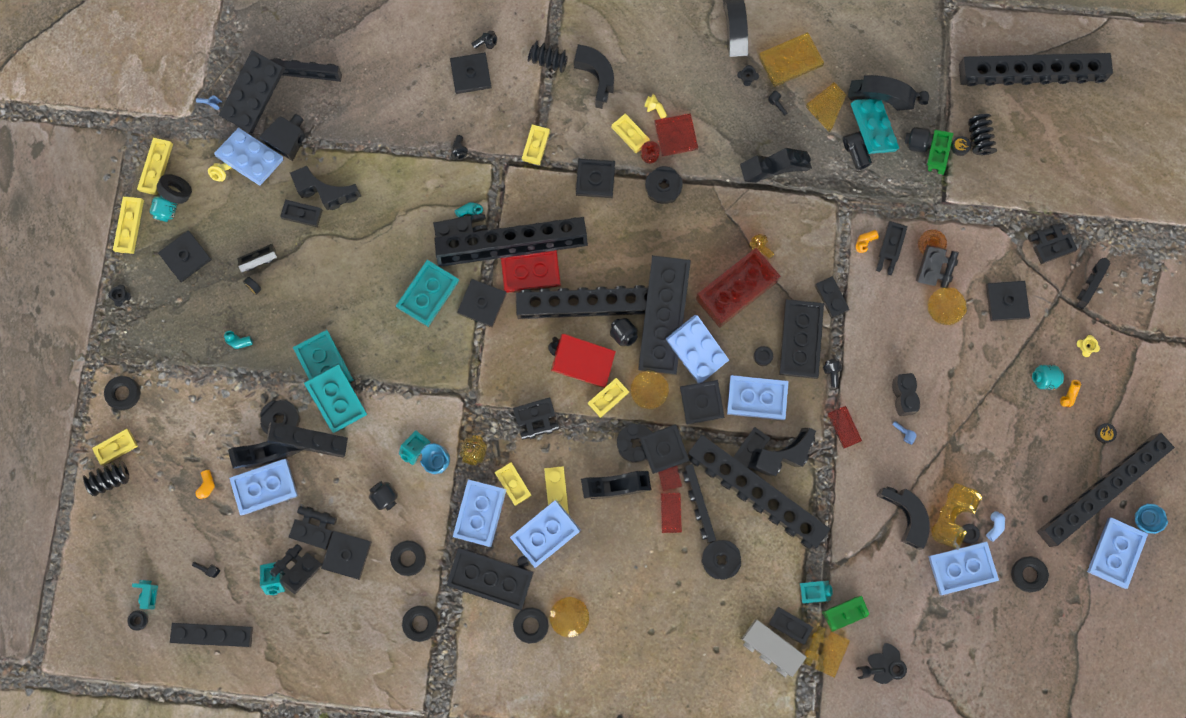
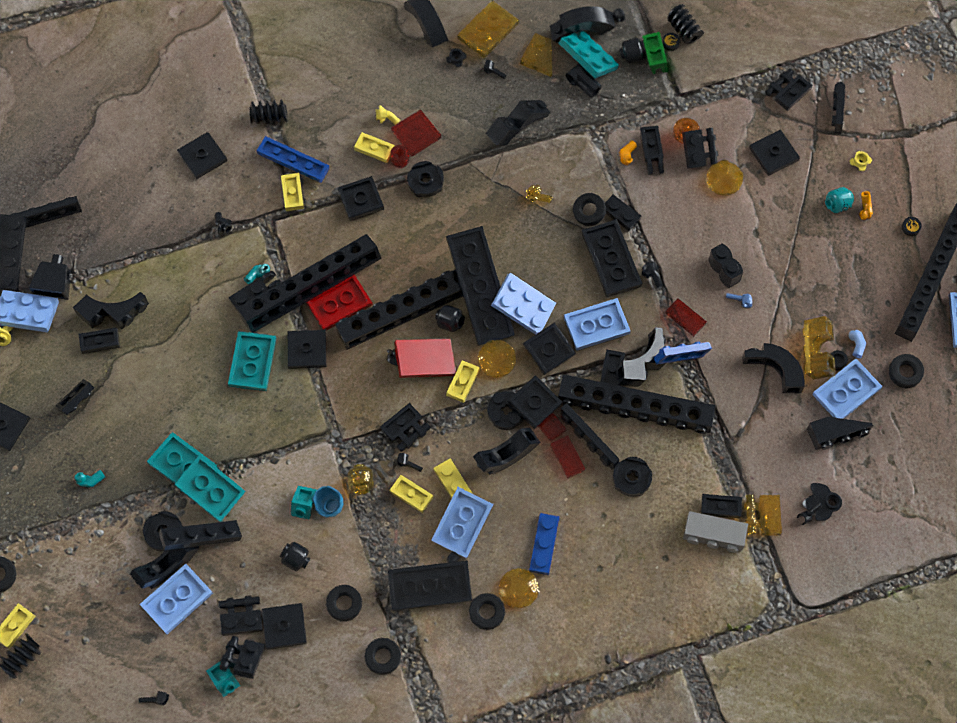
camera: 25 degrees left, 10 degrees down
(207, 485) = (121, 622): light orange arm -> none
(252, 285) = (81, 423): black tile -> none
(479, 513) = (392, 532): light blue plate -> none
(488, 38) = (205, 118): black plate -> none
(520, 448) = (402, 461): none -> black hand
(550, 113) = (293, 159): none -> blue plate
(597, 64) = (320, 102): black arch -> none
(611, 585) = (544, 544): none -> blue plate
(737, 287) = (534, 237): clear red brick -> none
(763, 356) = (584, 287): black tile -> none
(808, 291) = (585, 199): none -> black tyre
(816, 591) = (729, 466): teal bracket -> none
(823, 463) = (682, 352): none -> blue plate
(846, 613) = (764, 473): green hinge -> none
(927, 600) = (833, 430): none -> black slope

